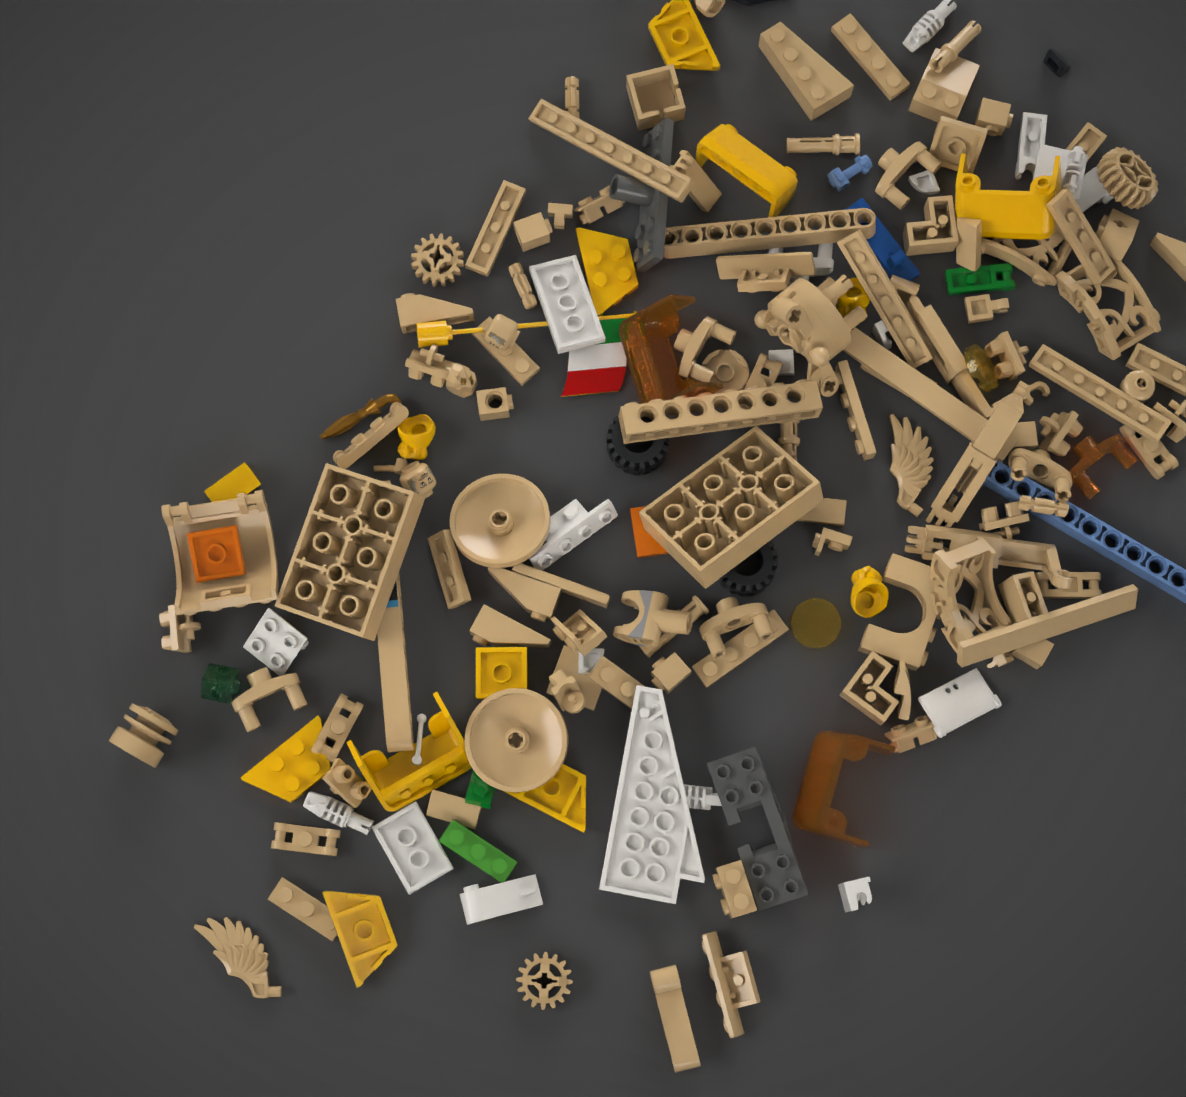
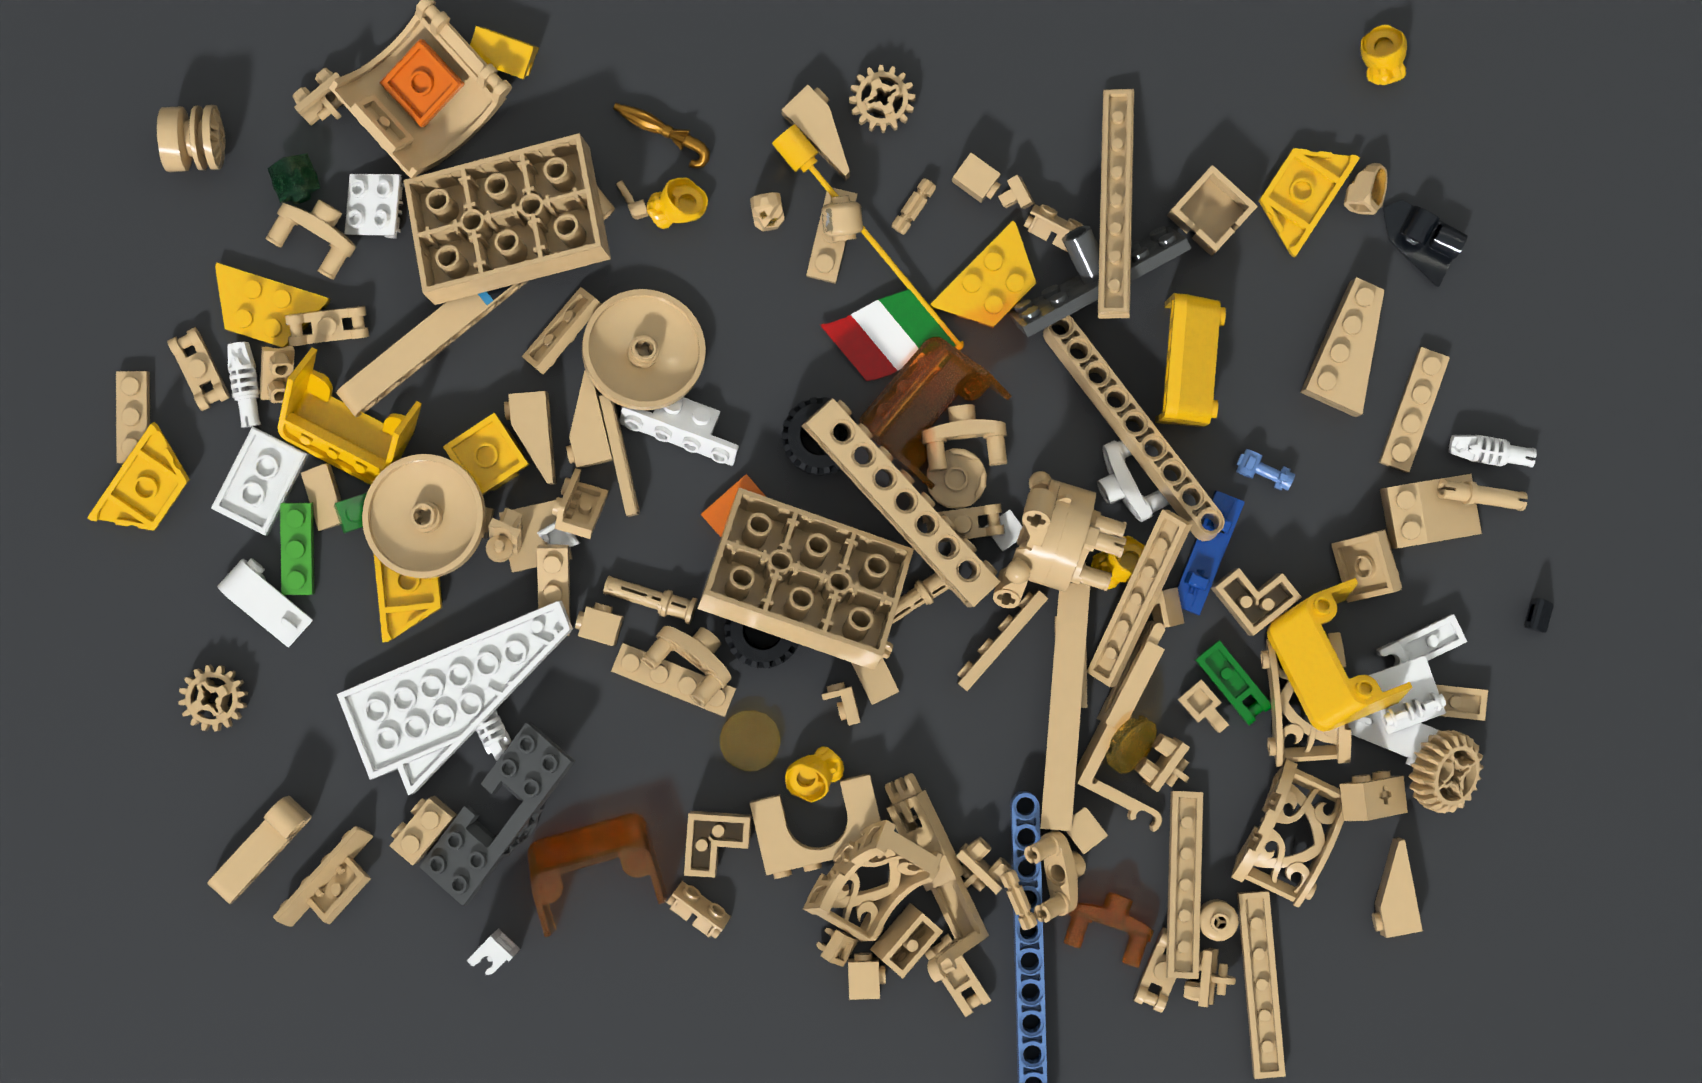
camera: 60 degrees right, 10 degrees up
(241, 955) = (46, 382): tan animal -> none
(364, 442) = (636, 155): tan plate -> none
(417, 759) = (348, 427): white hinge -> none
(418, 478) = (632, 237): tan head -> none
(429, 362) = (762, 166): tan hips -> none
(484, 397) = (755, 252): tan brick -> none
(495, 228) = (957, 136): tan plate -> none
(567, 304) = (921, 266): white tile -> none
(572, 95) = (1157, 121): tan axle -> none
(652, 619) = (642, 573): tan connector -> none
(704, 190) = (1144, 309): tan hinge -> none
(765, 271) = (1088, 452): tan bracket -> none
(835, 144) = (1286, 436): tan pin -> none
(879, 333) = (1104, 615): white tile -> none
(897, 164) = (1303, 514): tan connector -> none
(902, 687) = (733, 873): tan slope -> none
(909, 463) = (983, 732): tan animal -> none
(925, 183) = (1307, 557): white tile -> none
(954, 707) = (748, 934): white door -> none
(969, 245) = (1260, 648): tan slope -> none
(978, 459) = (1027, 803): tan hinge -> none
(993, 116) = (1427, 585): tan brick -> none
(1046, 625) = (892, 980): tan tile -> none
(1056, 429) = (1116, 863): tan hips -> none
(1080, 236) = (1337, 762): tan plate -> none

